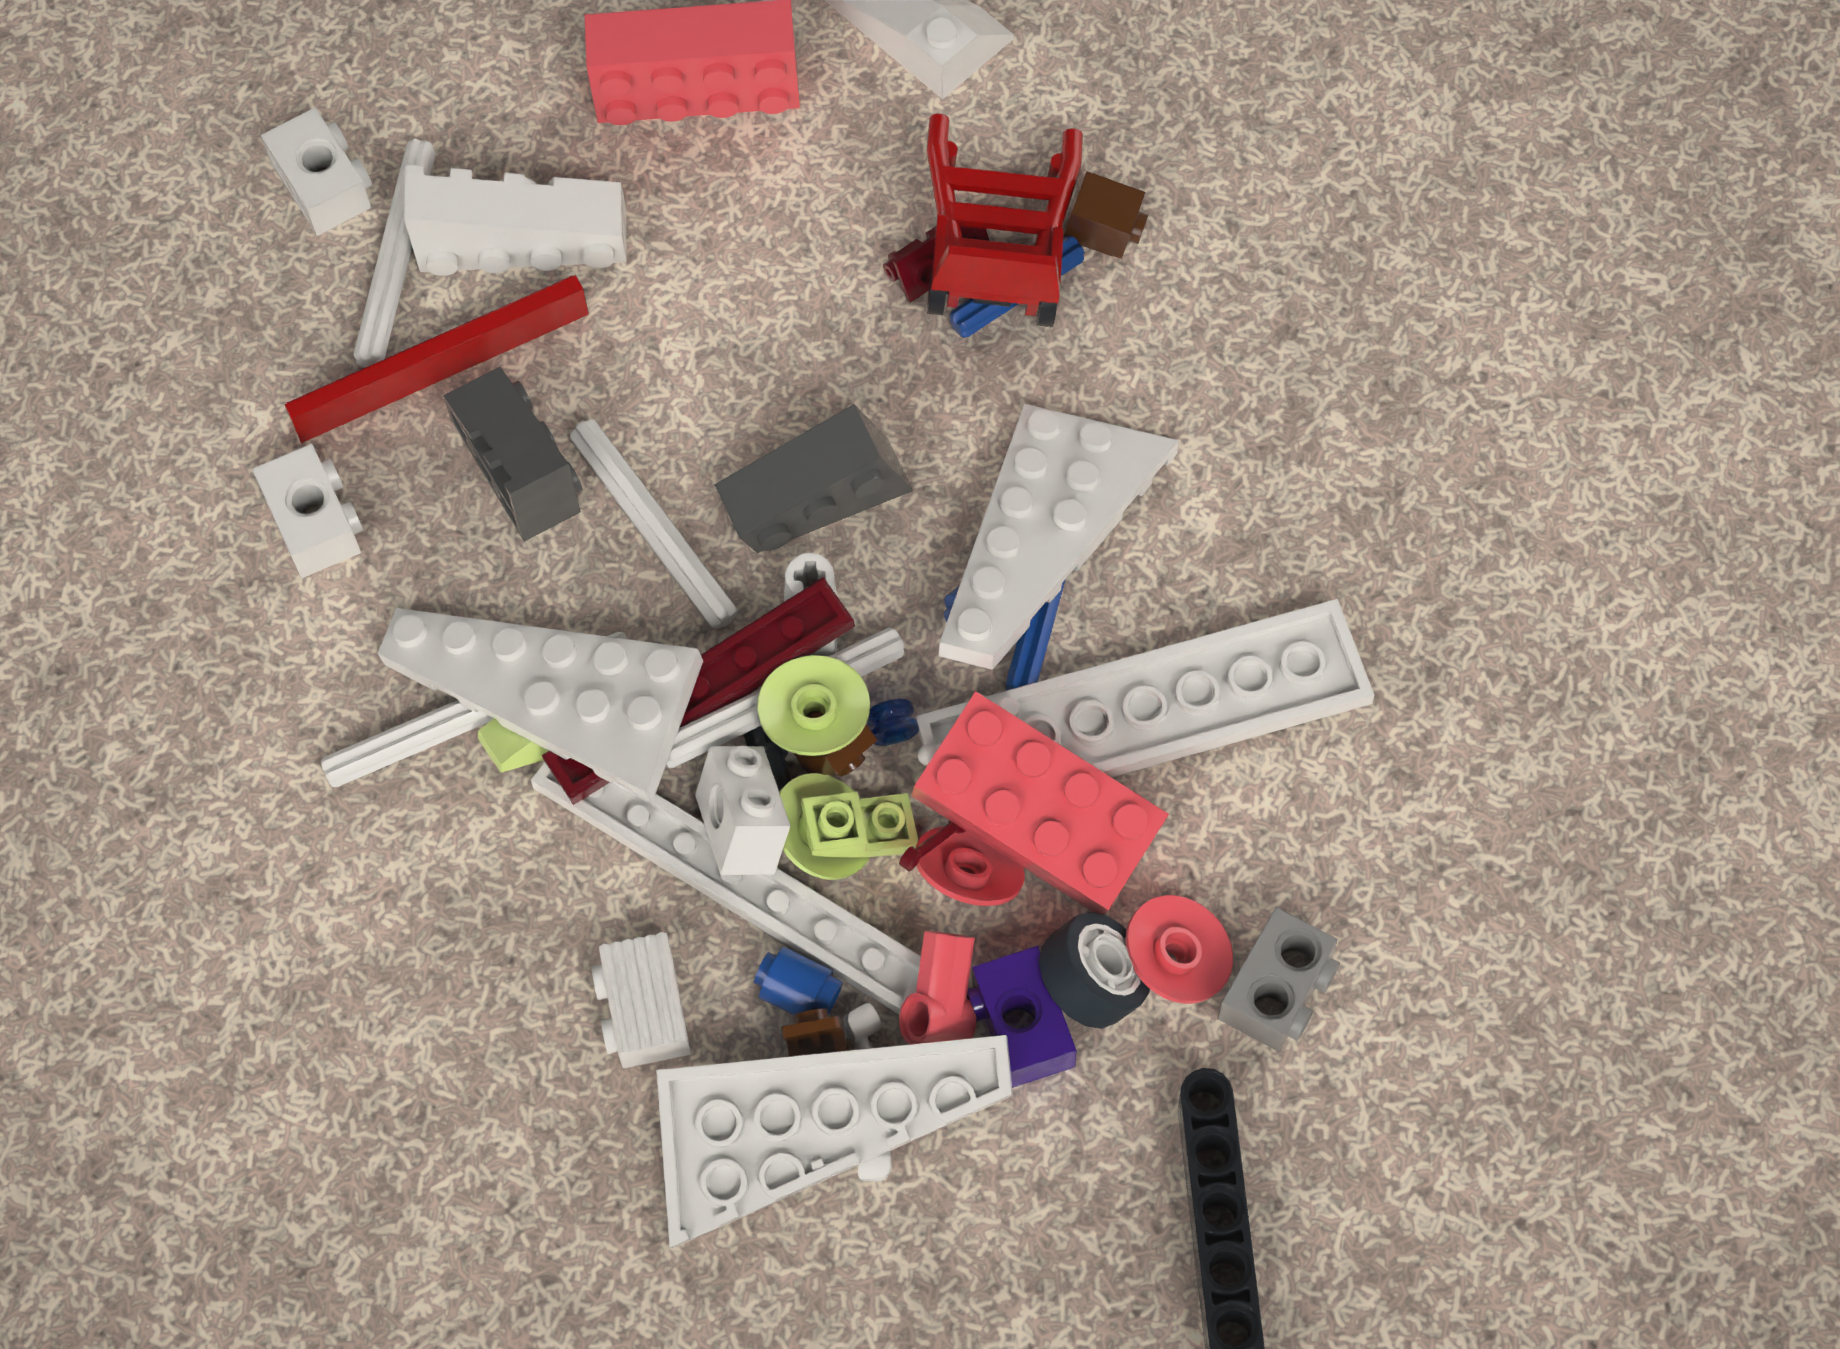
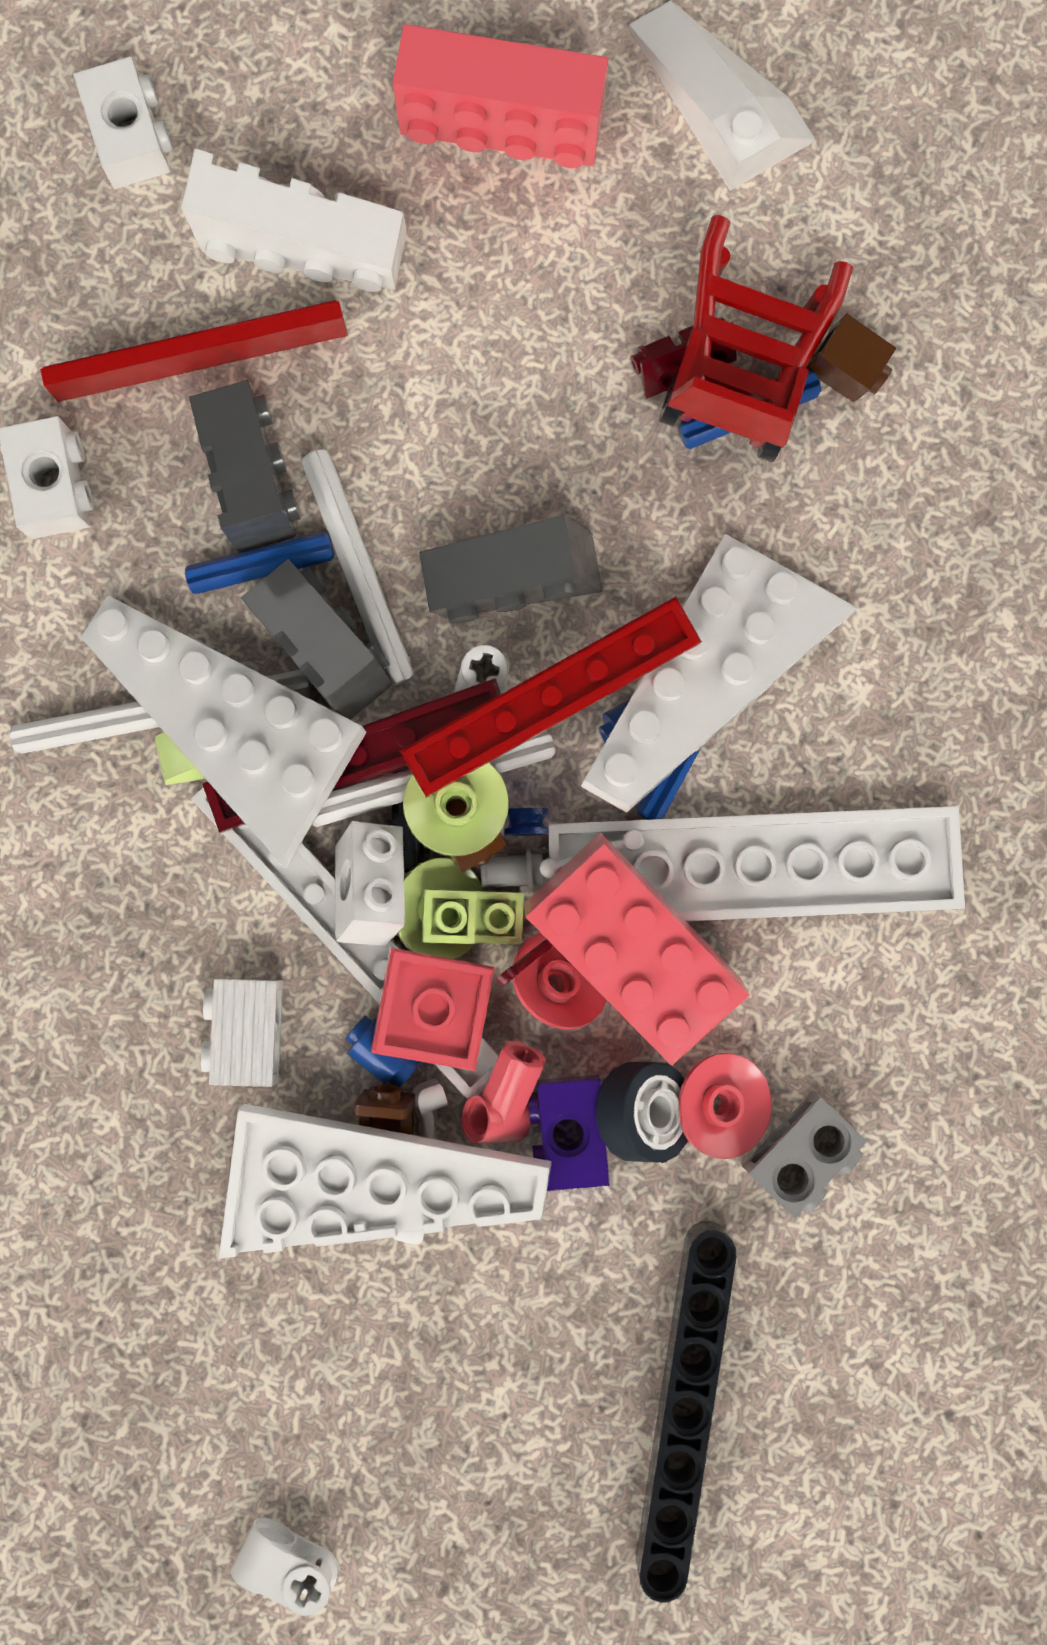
camera: 10 degrees right, 20 degrees up
(390, 266) = (174, 240): white axle -> none
(548, 542) = (258, 562): none -> blue axle
(630, 588) = (319, 638): none -> dark grey wedge
(840, 918) = (432, 1009): none -> coral plate
(883, 580) = (550, 697): none -> red tile
(889, 774) = (512, 871): none -> light grey pin

